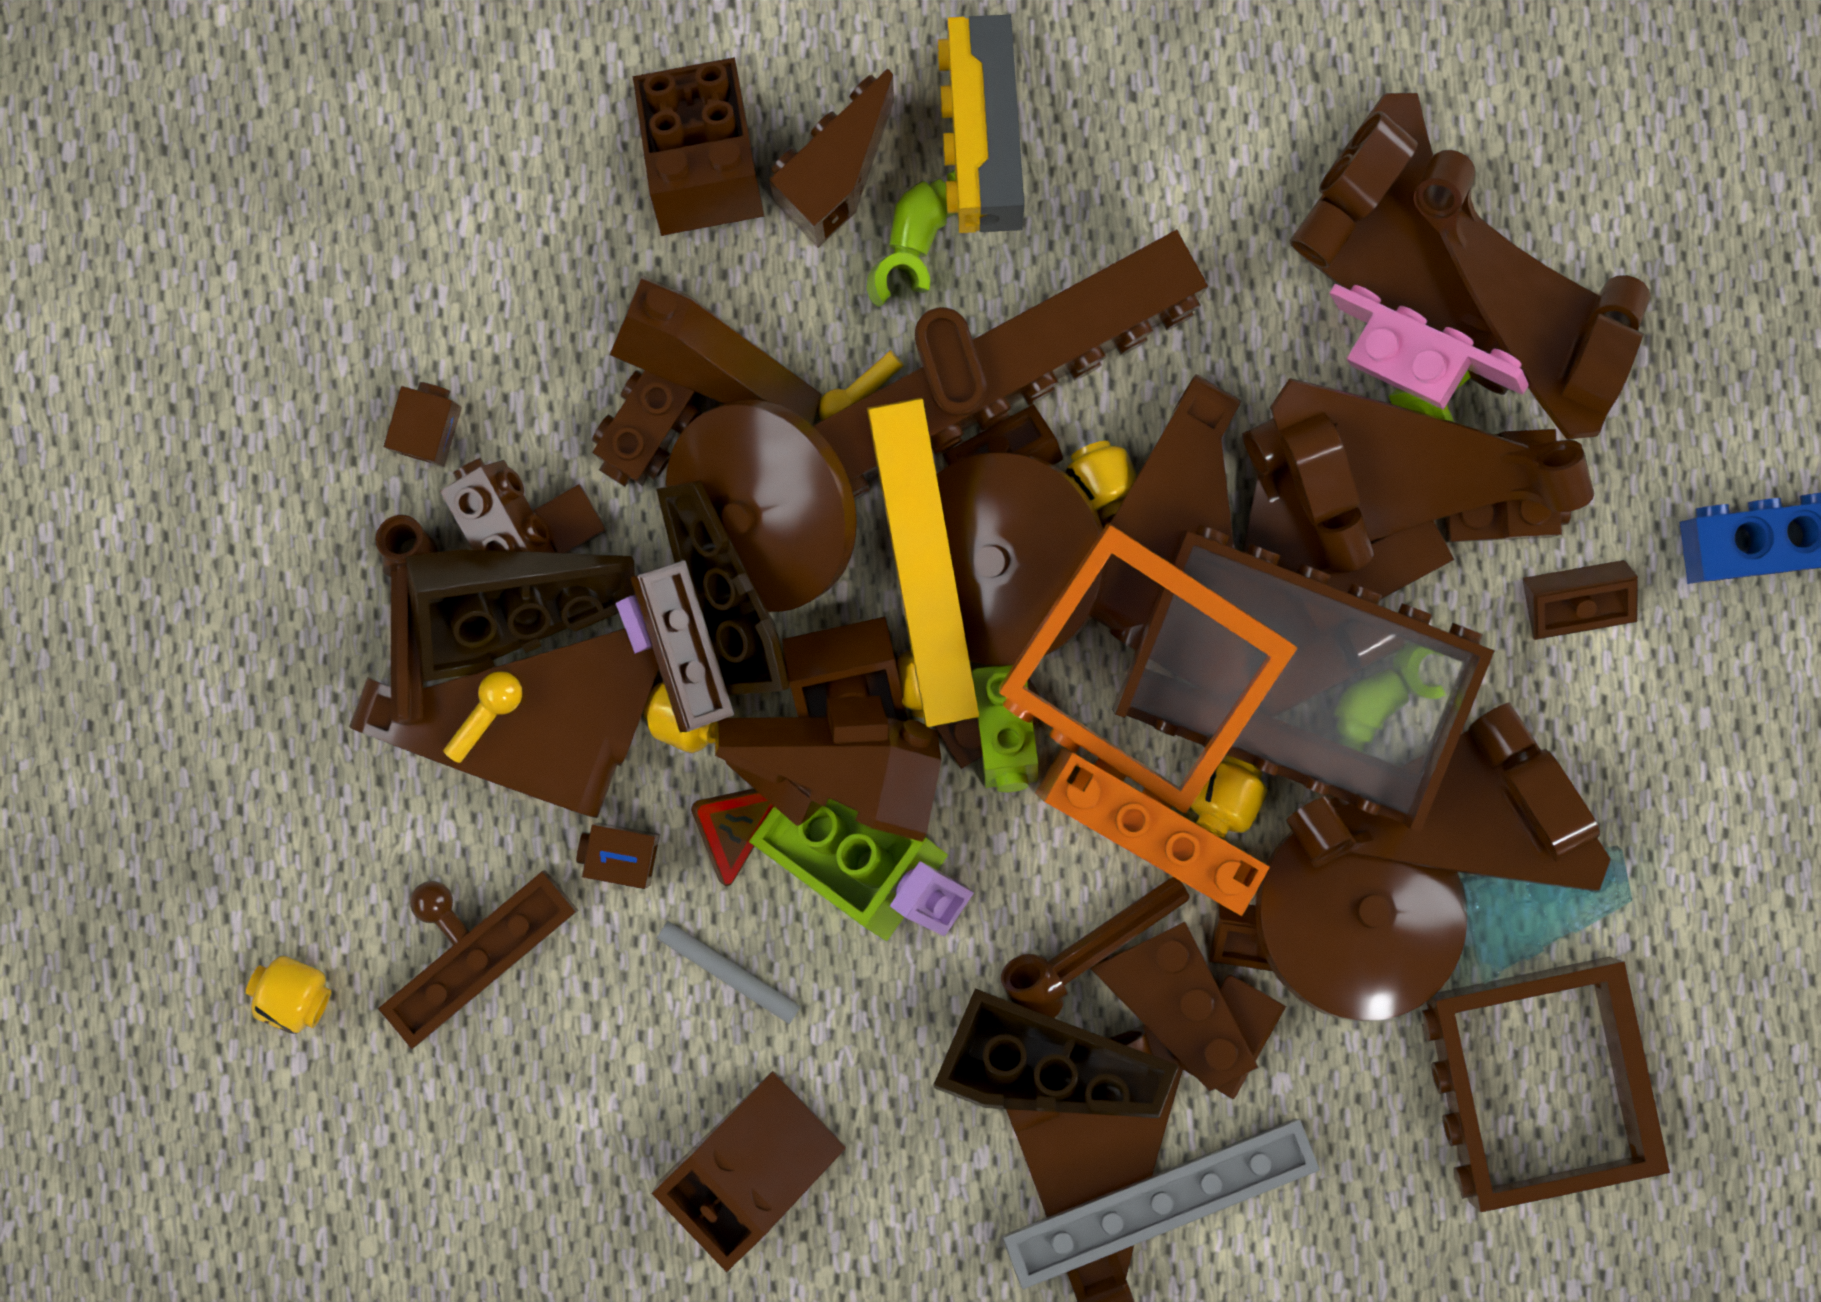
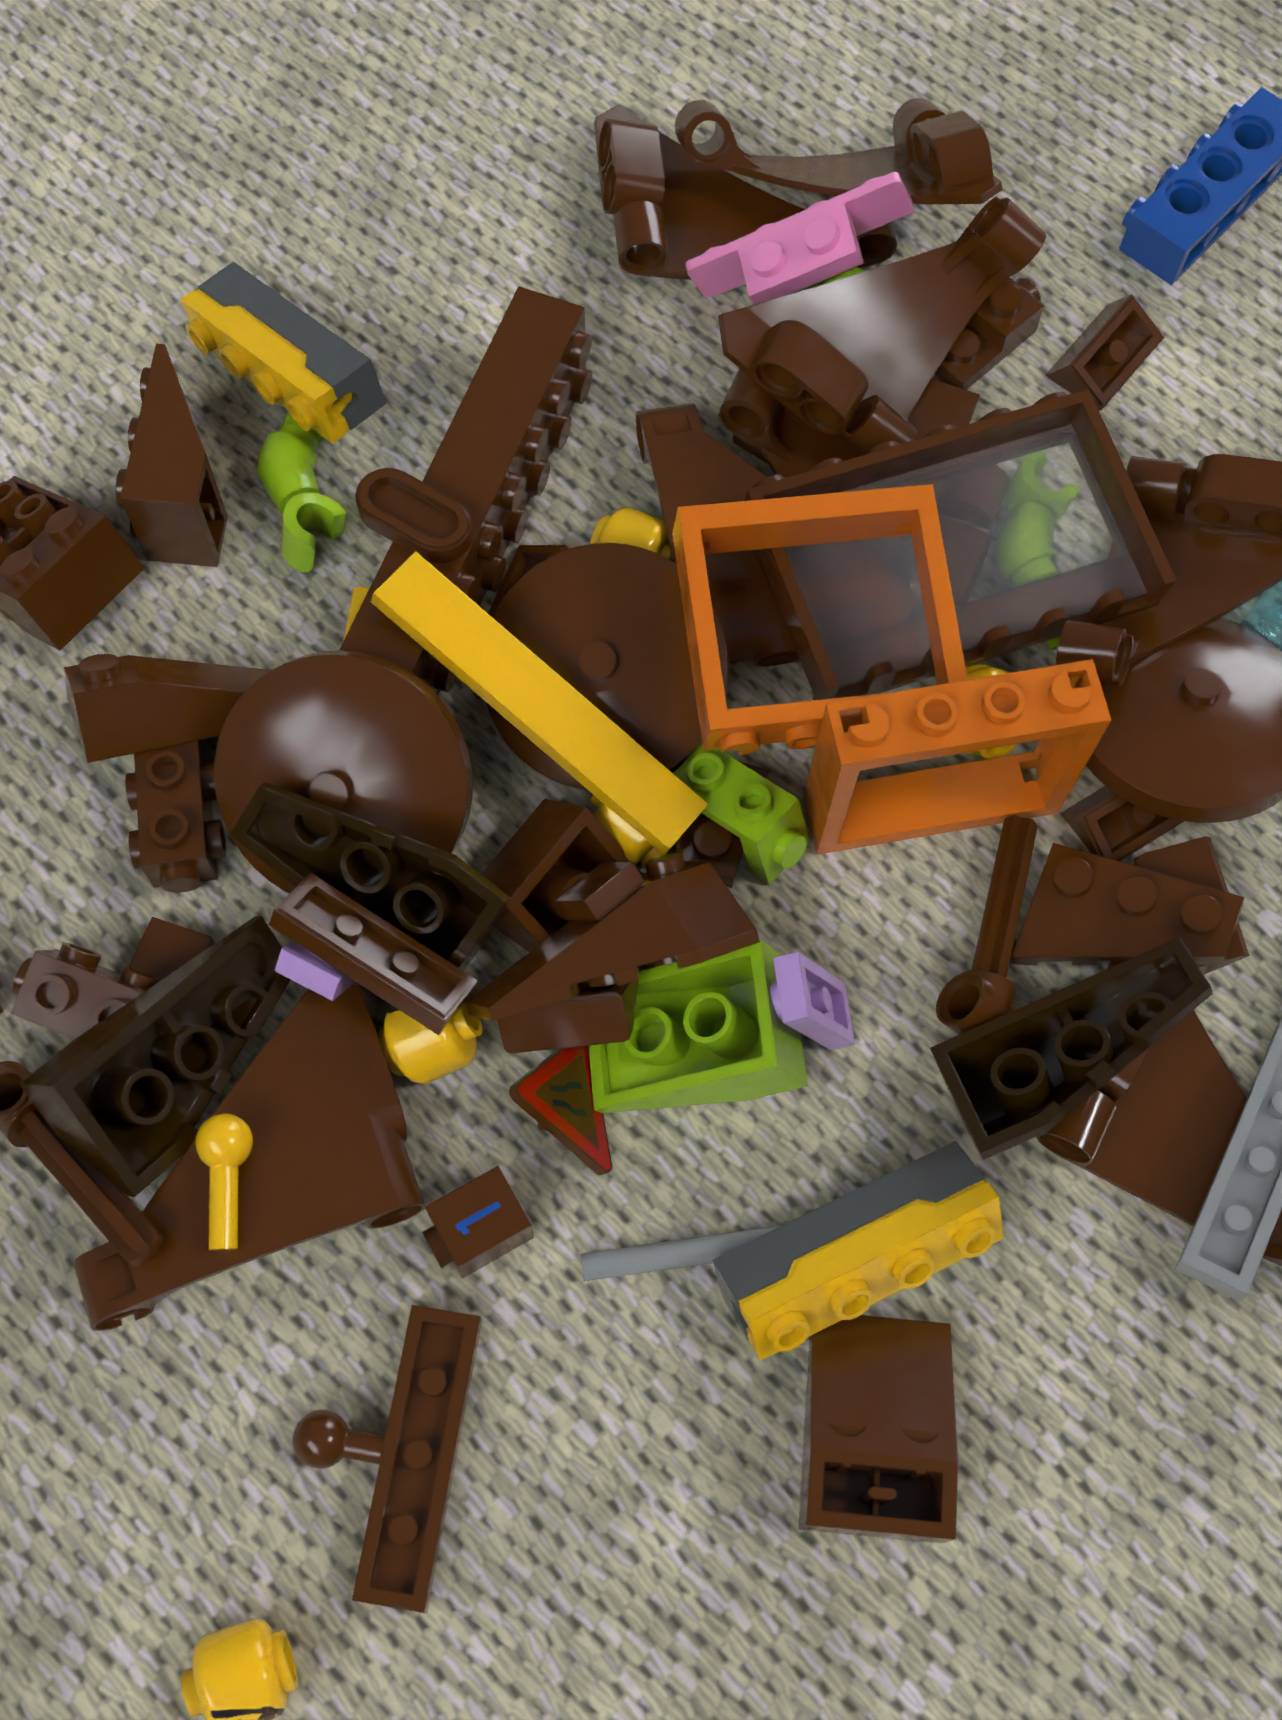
camera: 40 degrees left, 20 degrees down
(826, 1066) = (859, 1250): none -> yellow piece

